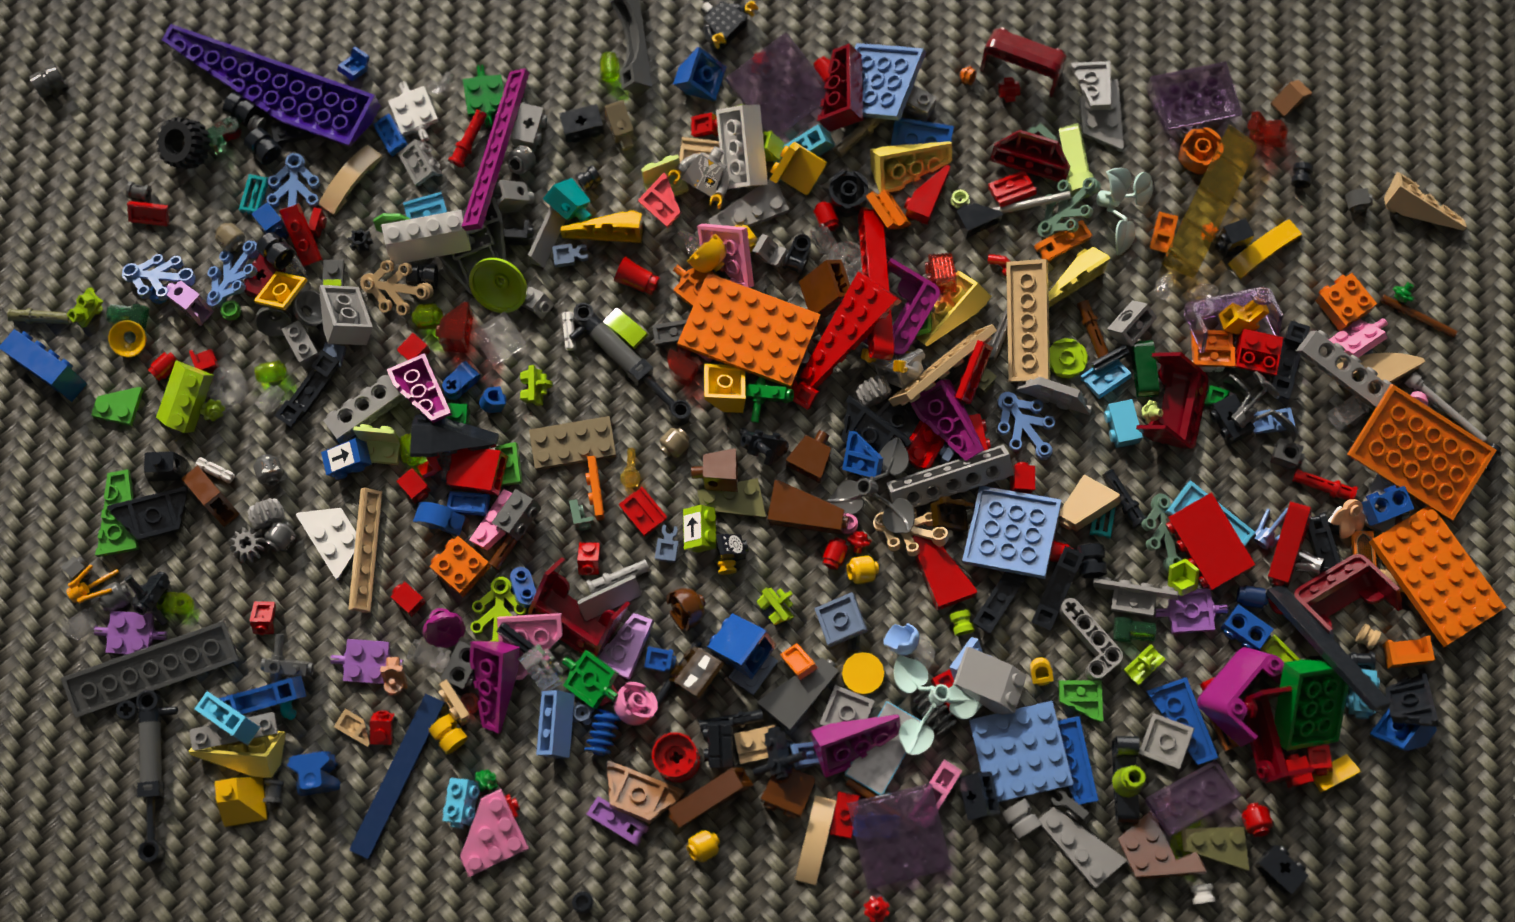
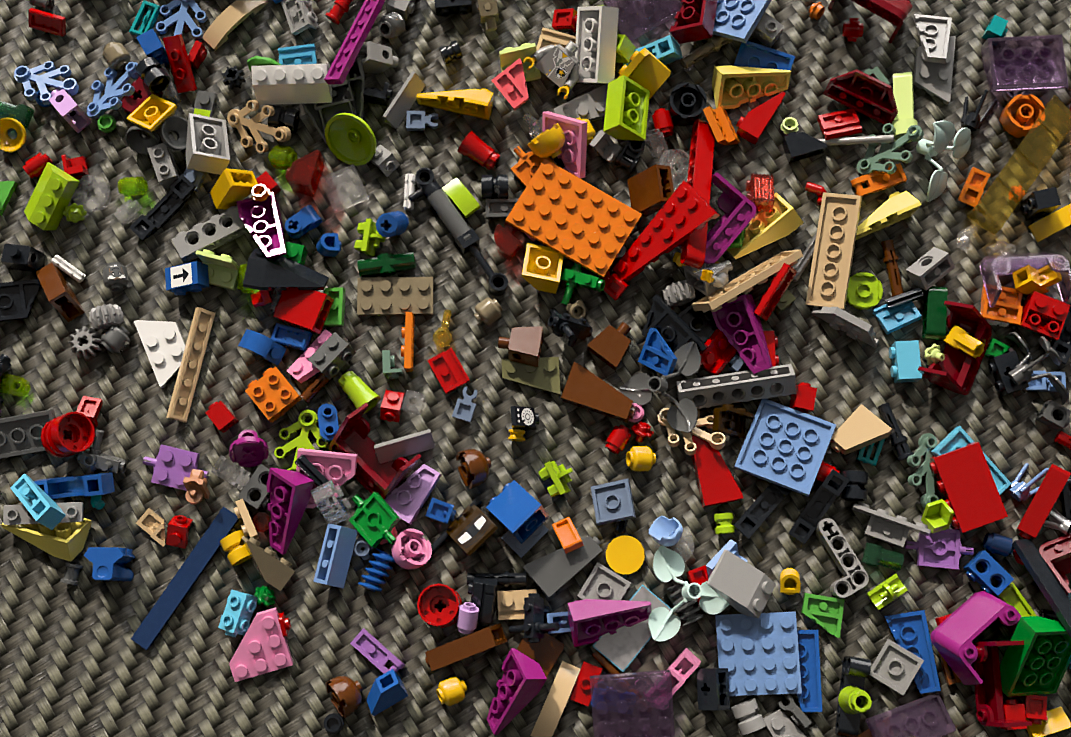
camera: 10 degrees right, 5 degrees up
(241, 800) = (41, 577): yellow slope -> none
(246, 643) = (67, 434): none -> red wheel
(379, 355) = (232, 187): none -> yellow slope
(411, 356) = (260, 192): none -> orange plate
(414, 486) = (244, 313): red brick -> none
(486, 747) = (270, 568): none -> dark tan slope
(550, 548) = (358, 391): none -> lime plant
(551, 372) = (392, 224): none -> blue piece
(557, 411) = (386, 264): none -> dark green piece
(568, 200) = (428, 70): teal torso -> none
(590, 868) = (345, 694): none -> reddish brown cylinder
(609, 579) = (408, 429): light grey pin -> none
(611, 557) = (414, 408): none -> clear plate
(632, 859) = (385, 692): none -> blue slope
(638, 793) = (400, 632): medium nougat wing -> none
(652, 311) = (488, 183): none -> black wheel
(699, 528) = (497, 395): lime brick -> none
(707, 764) = (467, 618): none -> lavender brick
(773, 426) = (581, 312): none -> dark tan plate
(774, 825) = (518, 686): none -> magenta wedge
(785, 209) = (626, 110): none -> lime slope
(1023, 422) = (812, 345): medium blue plant -> none
(1150, 164) = (973, 120): none -> black plant
(1158, 64) = (996, 28): none -> teal plate
(1176, 391) = (962, 340): none -> yellow piece

